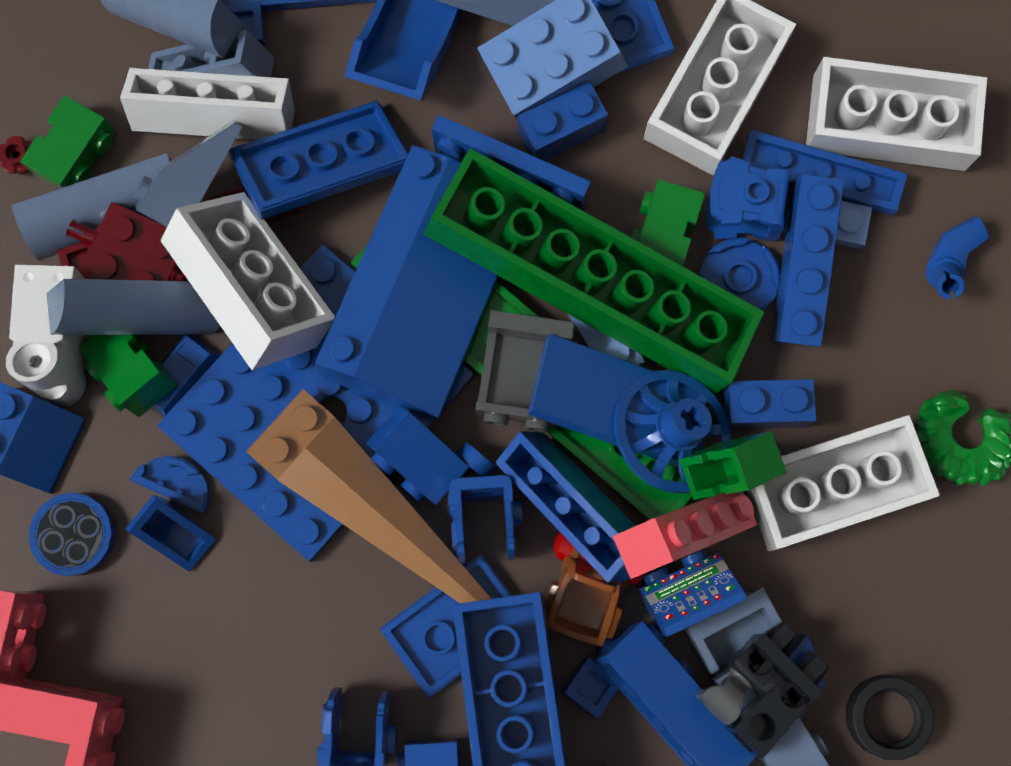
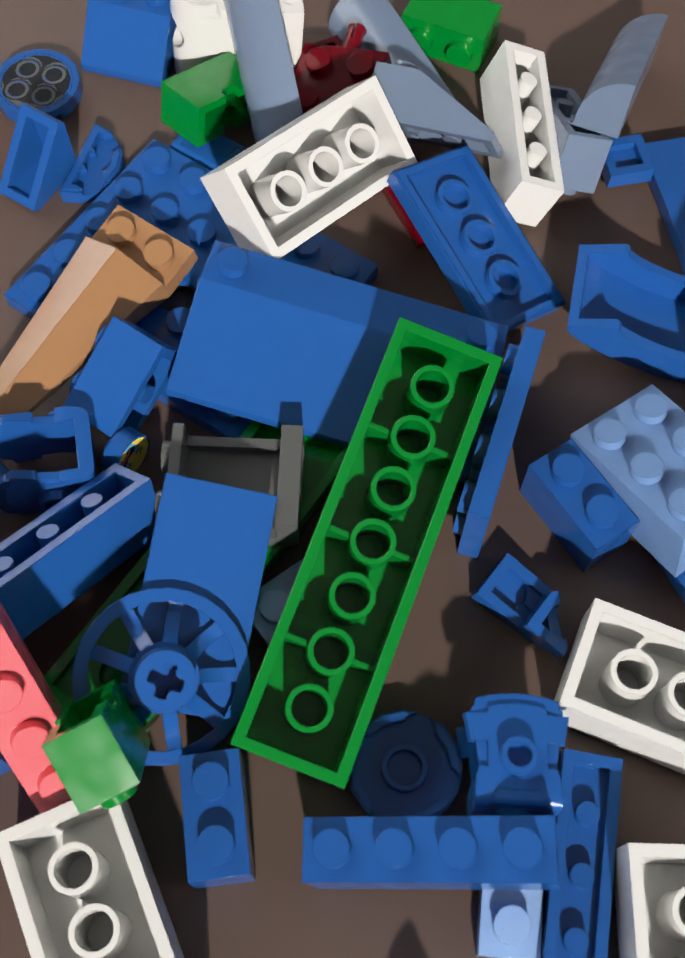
camera: 80 degrees right, 15 degrees down
(627, 178) = (523, 604): none -> blue slope
(669, 214) = (456, 653): green brick -> none

